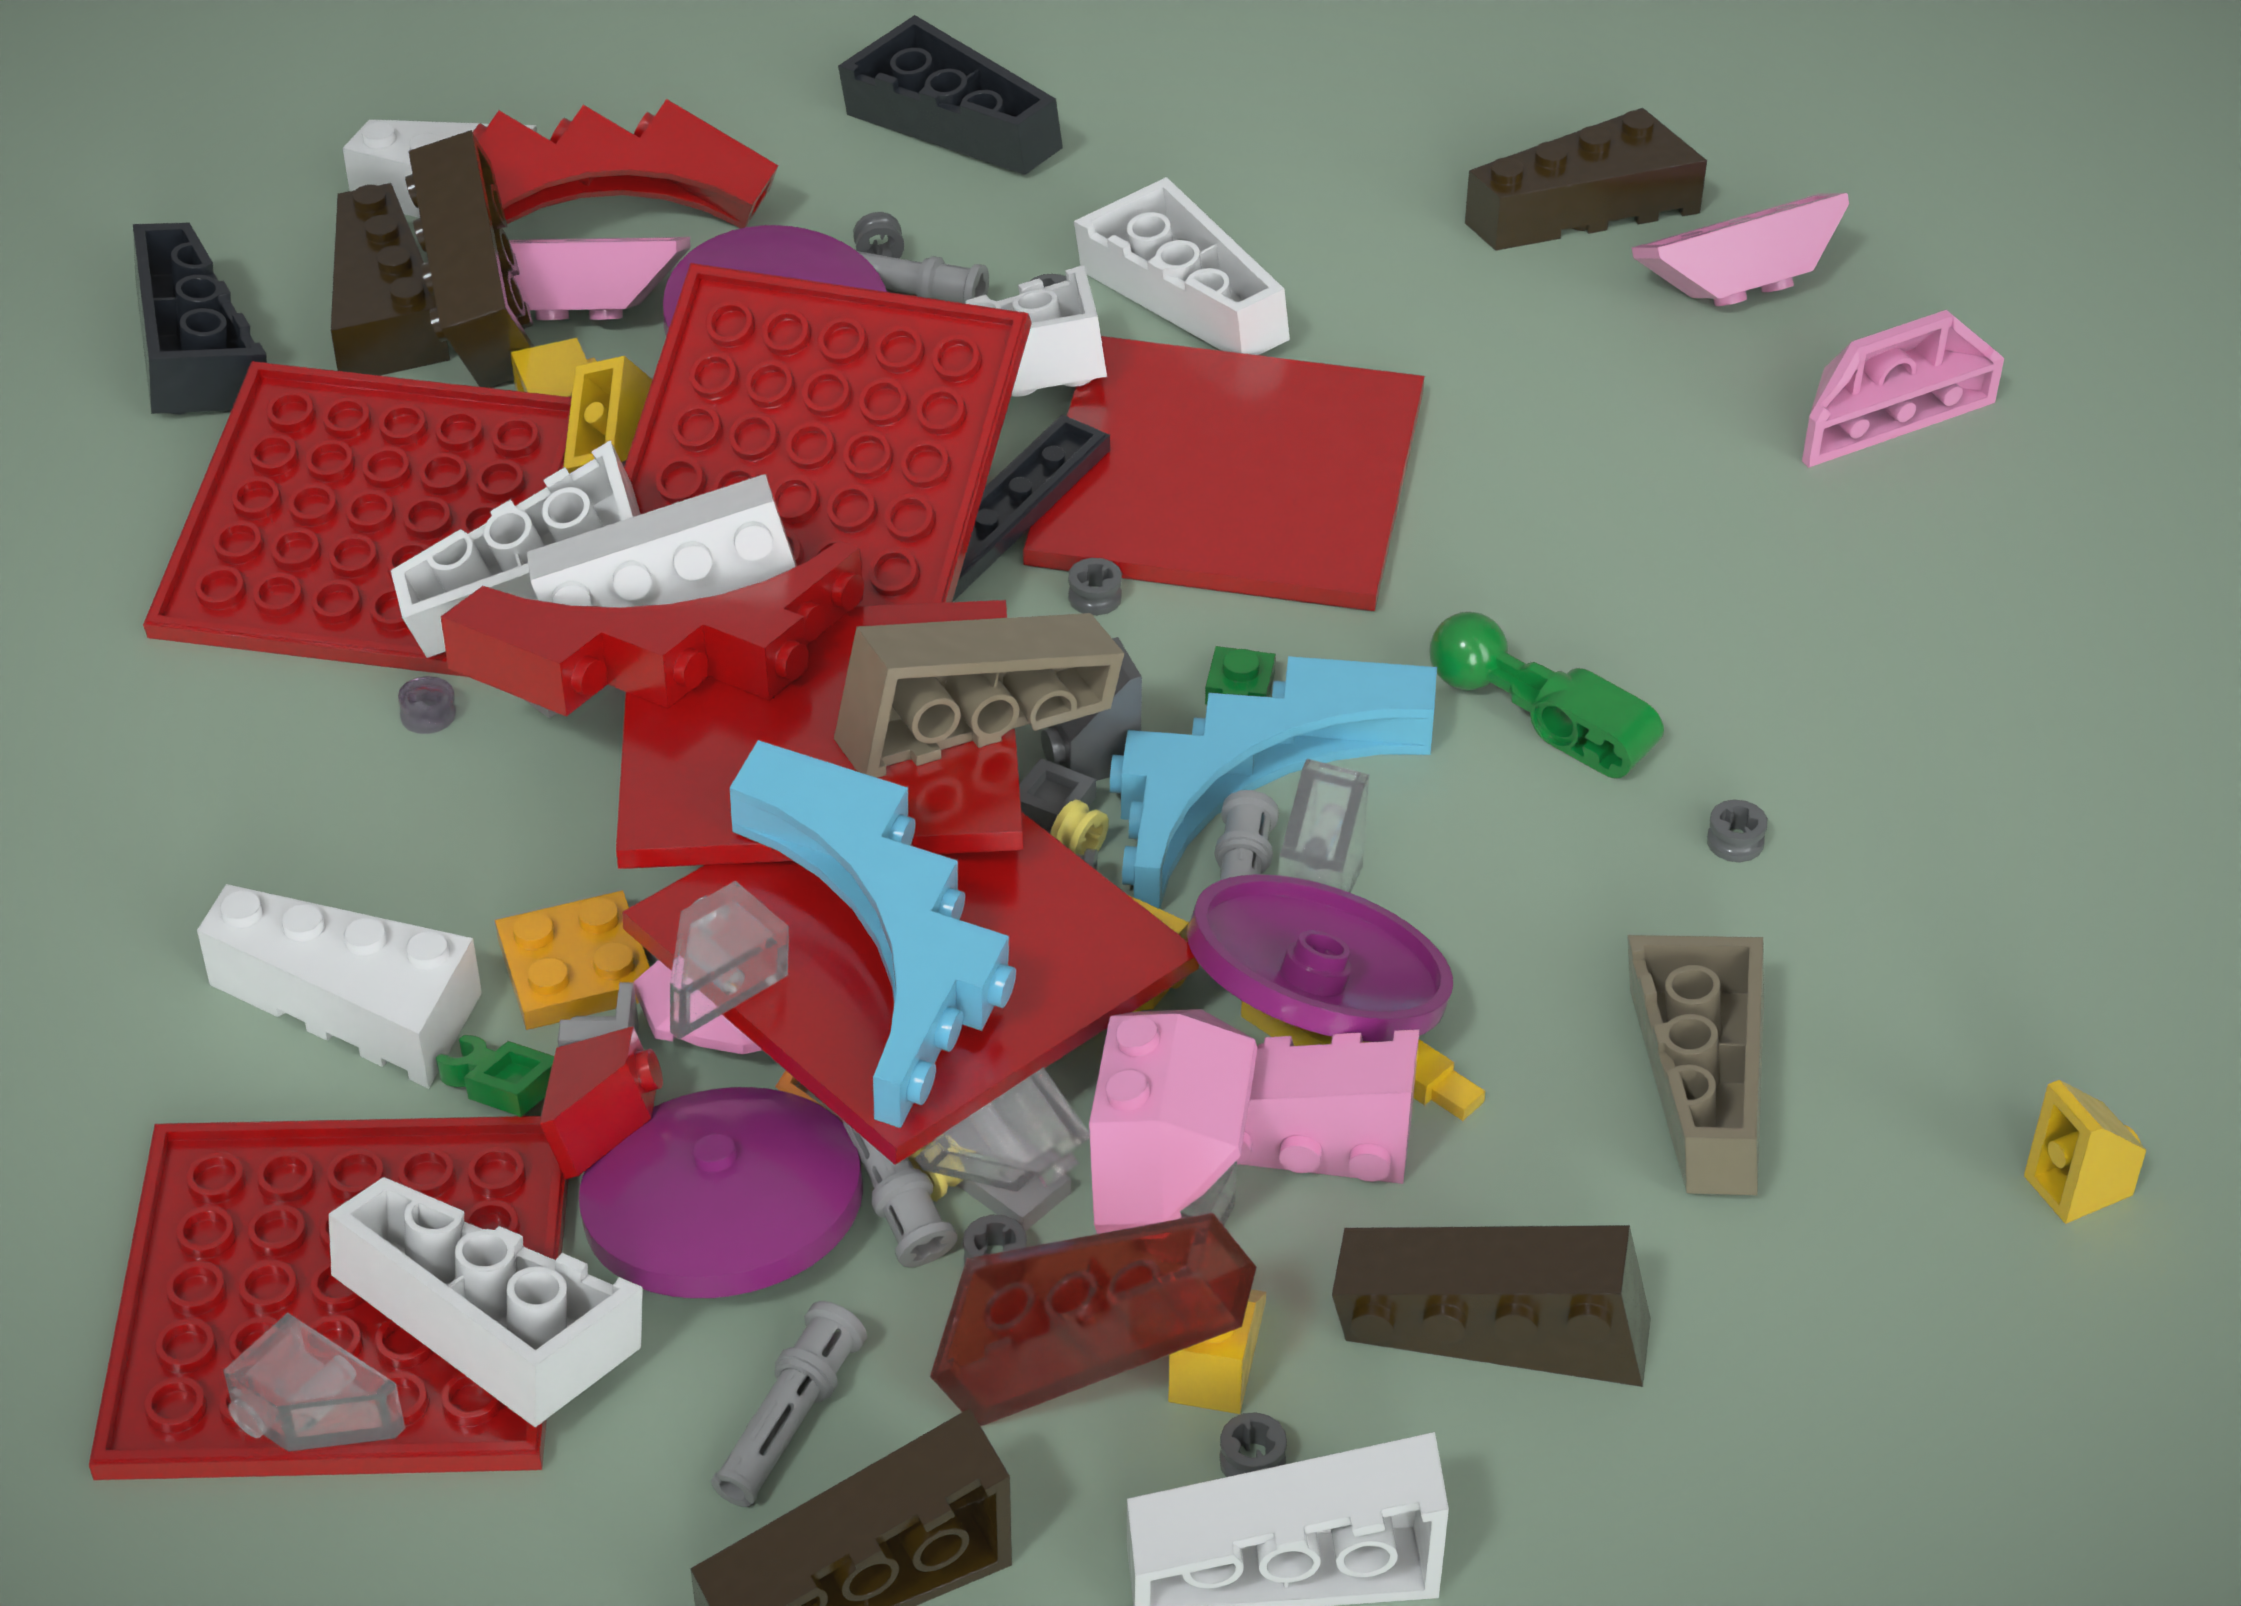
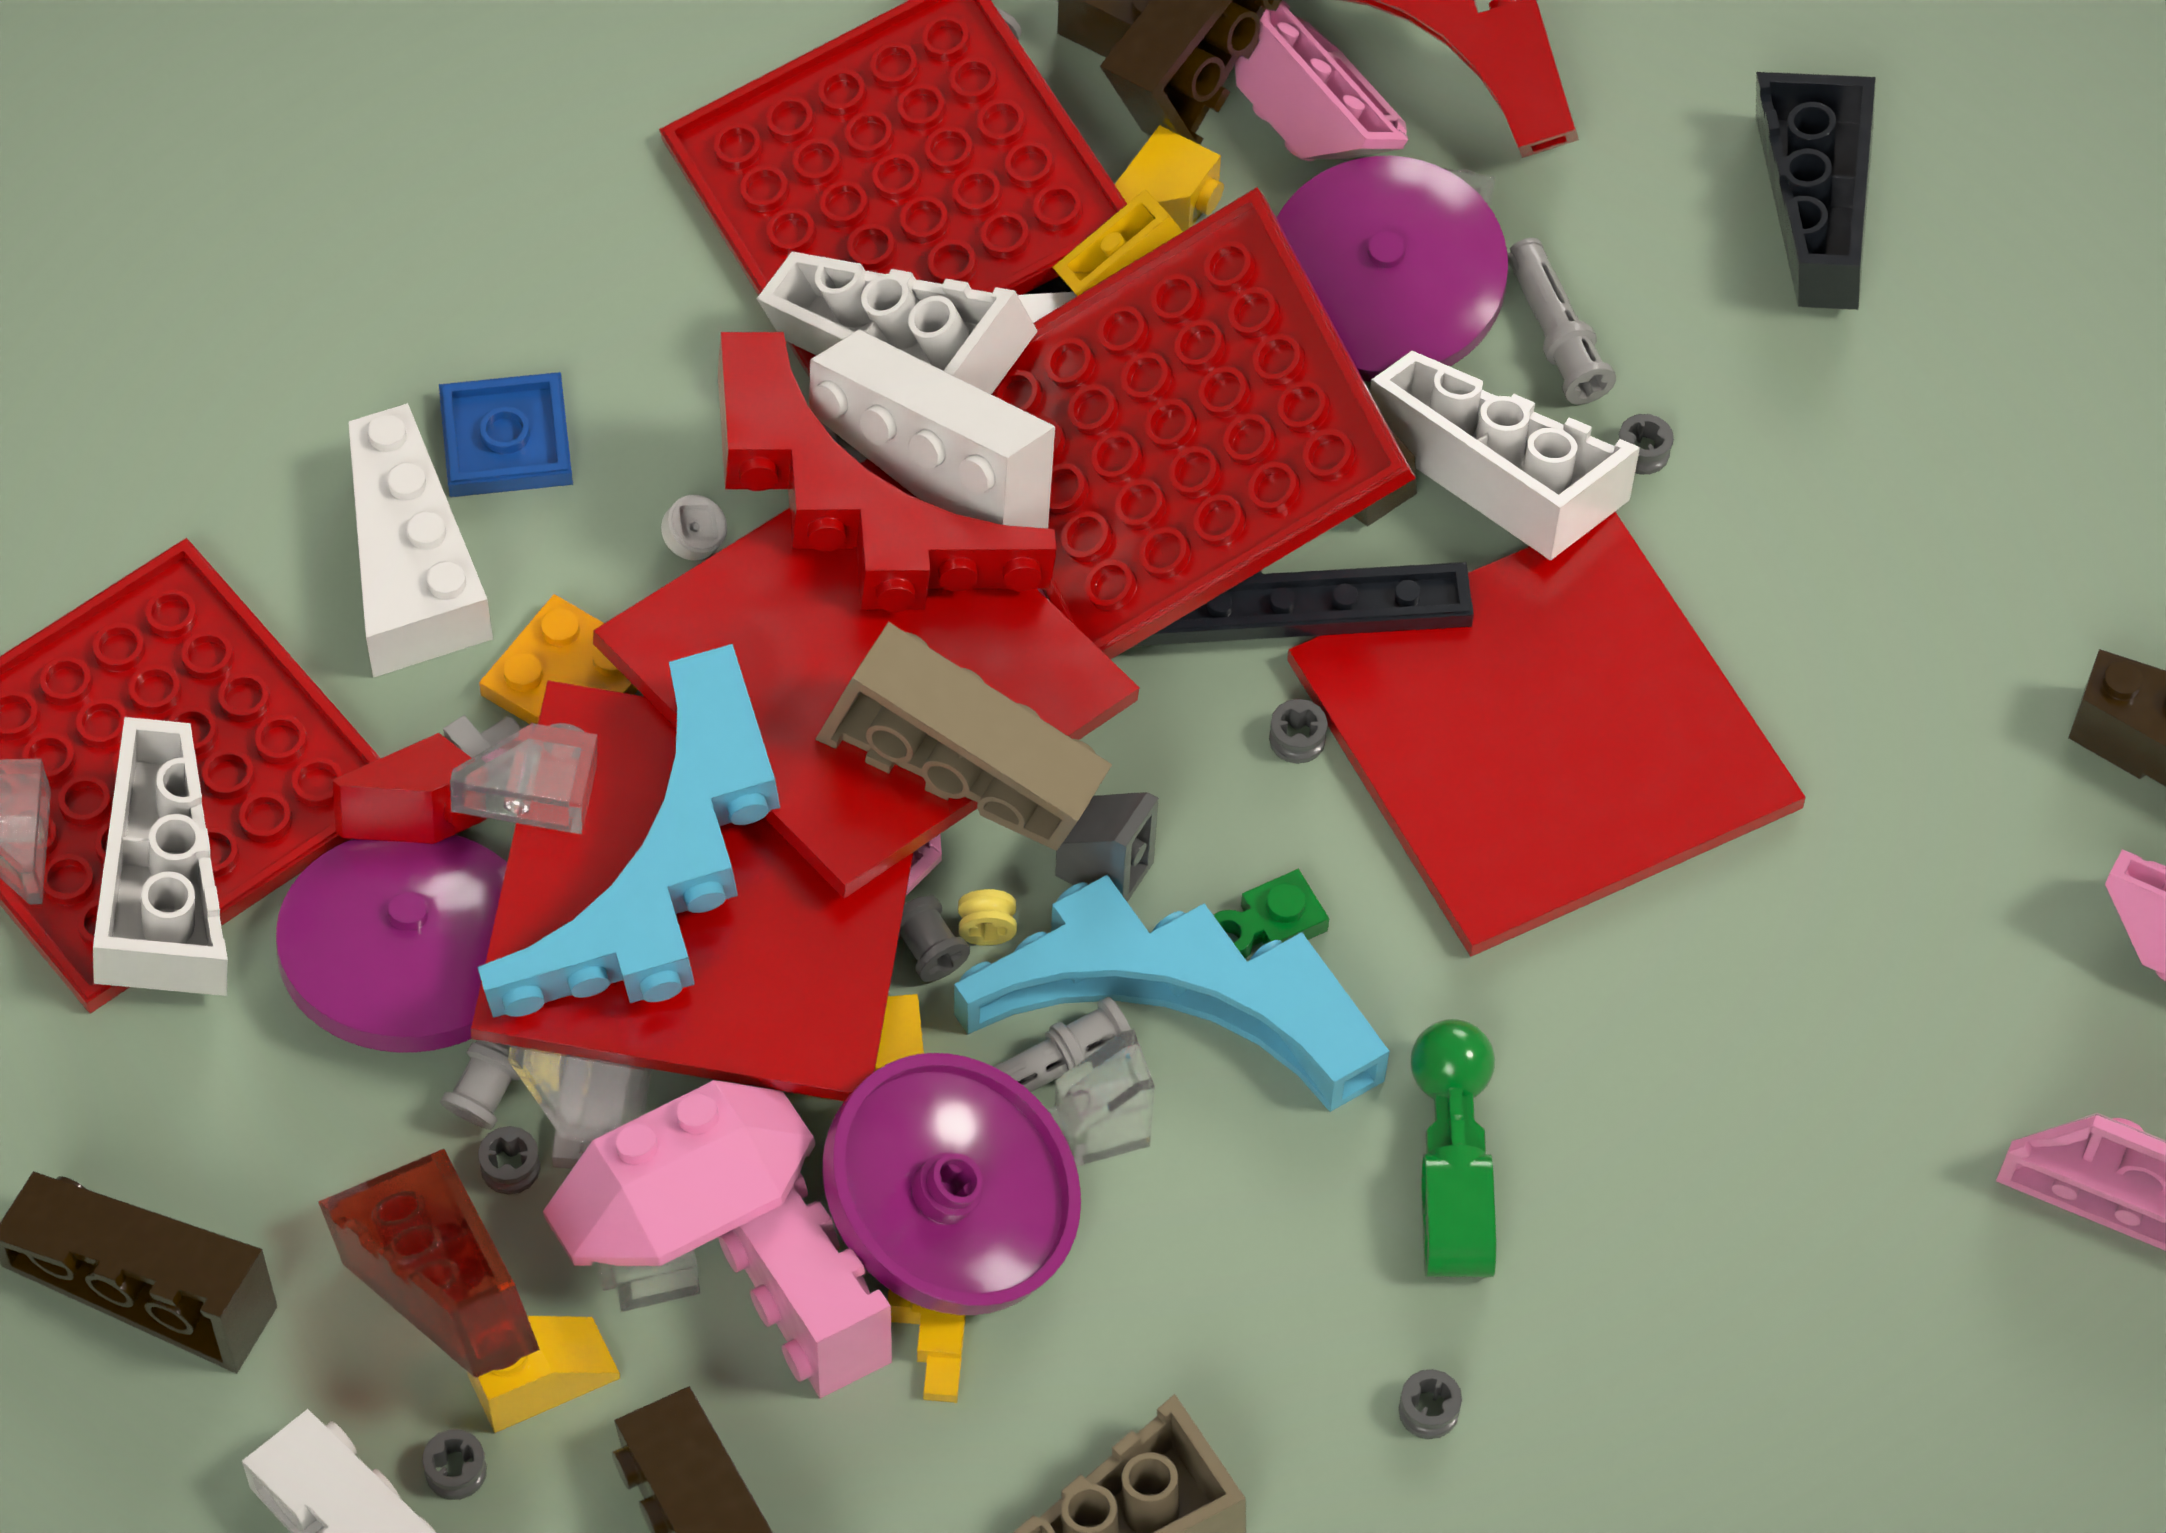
camera: 50 degrees right, 15 degrees up
(308, 861) = (505, 434): none -> blue tile
(504, 1079) = (404, 710): green plate -> none
(532, 805) = (694, 527): none -> white tile
(803, 1377) = (170, 1144): light grey pin -> none
(879, 224) = (1584, 266): dark grey bush -> none
(1050, 789) = (1014, 867): dark grey plate -> none
(1184, 269) = (1760, 506): white wedge -> none

